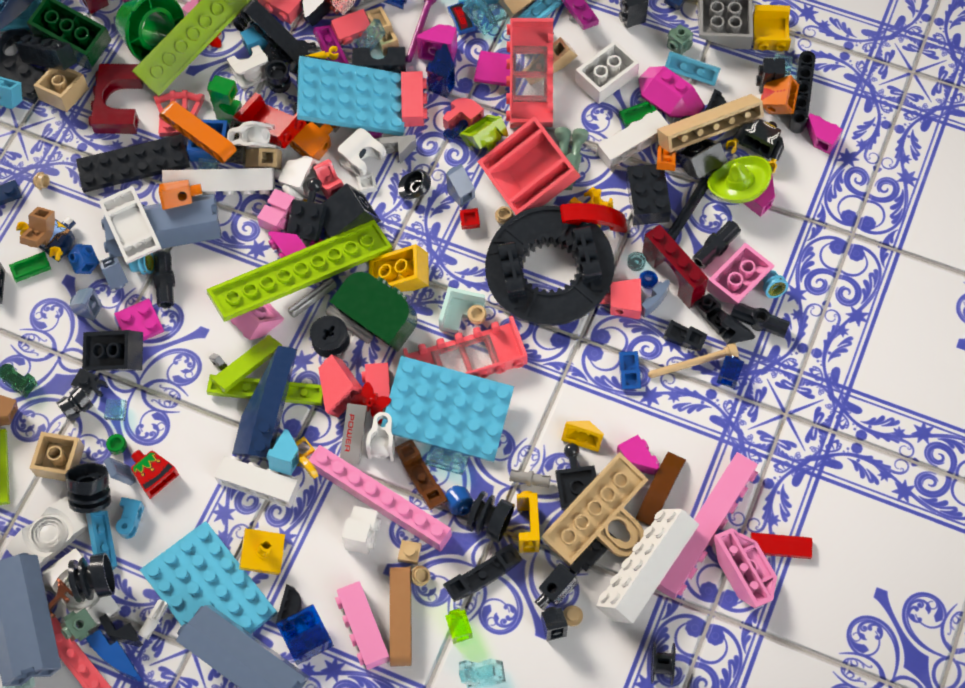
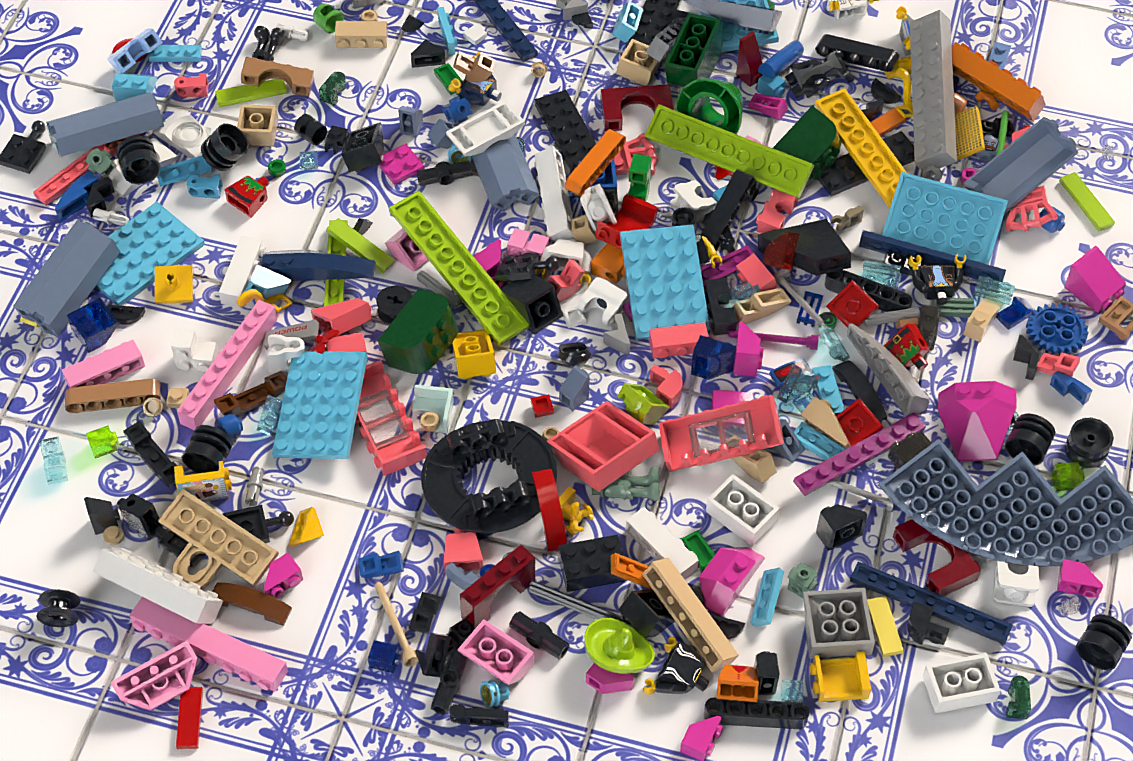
camera: 80 degrees right, 10 degrees down
(119, 471) = (243, 164): sand blue tile -> none
(171, 196) = (526, 159): orange torso -> none
(452, 134) = (644, 380): clear blue arm -> none
(794, 299) = (478, 716): none -> black hinge

